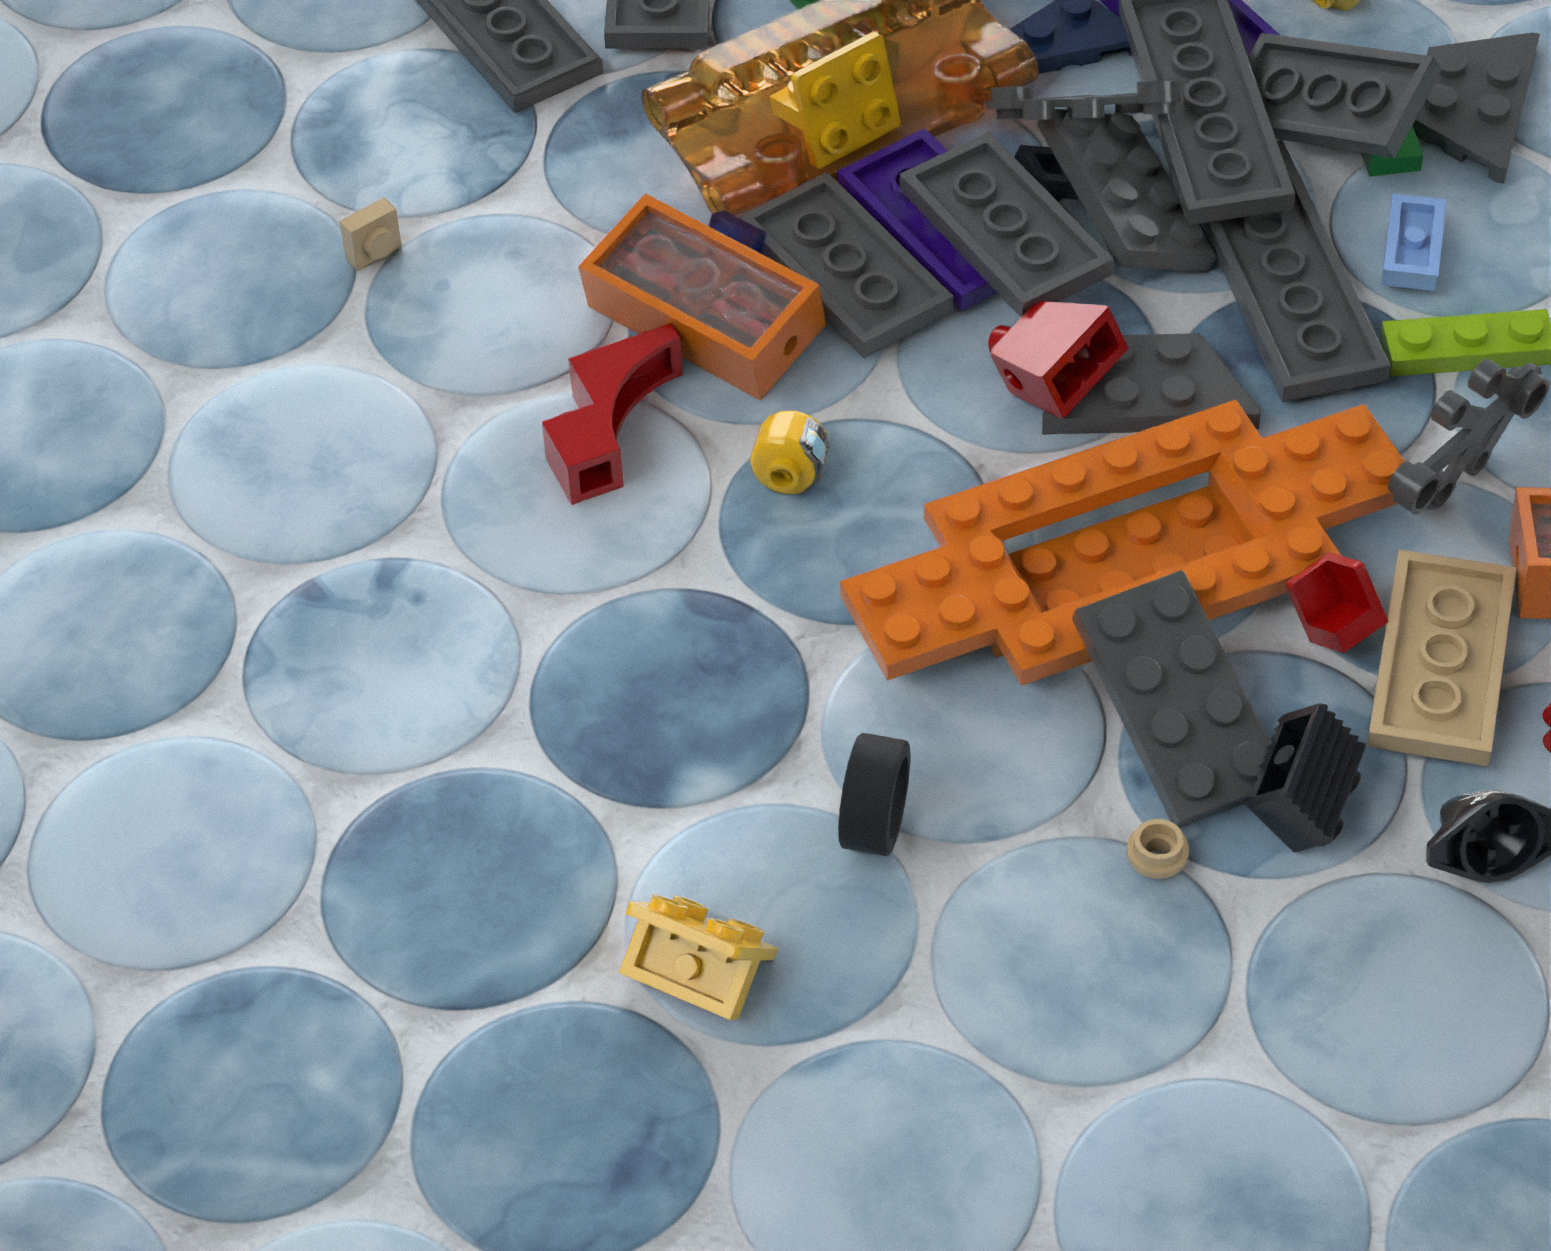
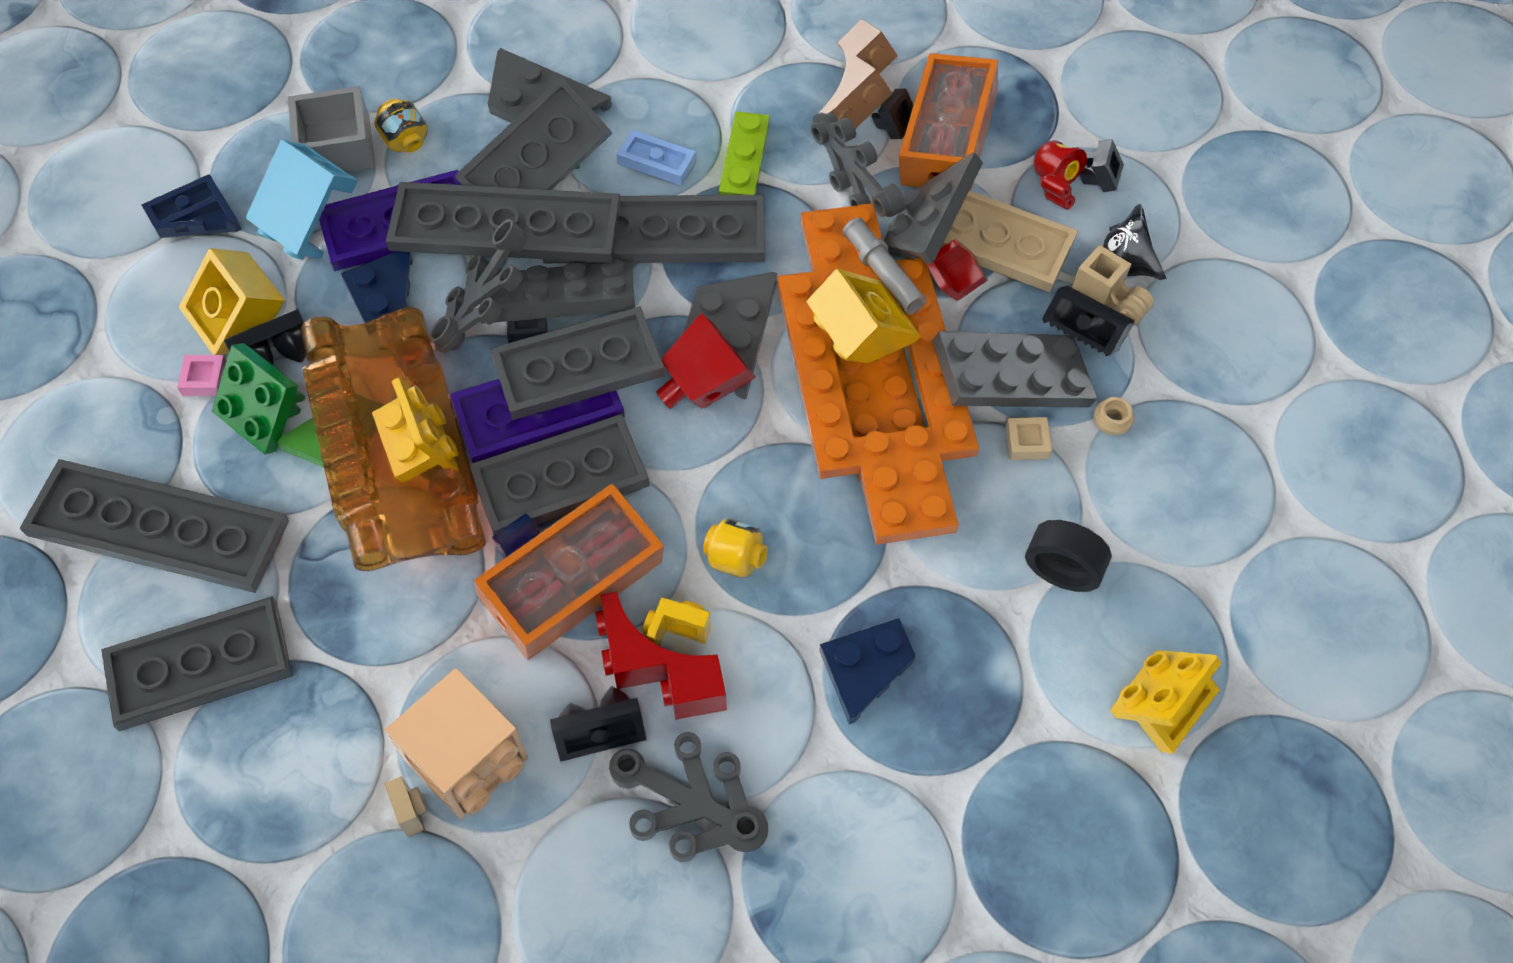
camera: 80 degrees left, 10 degrees up
(417, 540) = (694, 802): none -> dark grey plant
(444, 245) = (458, 744): none -> light nougat brick
(505, 376) = (590, 731): none -> black tile
(664, 405) = (681, 619): none -> yellow bracket
(666, 625) = (866, 664): none -> dark blue wing
(1076, 745) = (1028, 438): none -> tan plate
(1175, 481) = (860, 317): none -> yellow slope
(1301, 481) = (875, 253): none -> light grey pin
(1386, 799) = (1103, 279): none -> tan brick
(1442, 541) = (931, 212): none -> dark grey wing

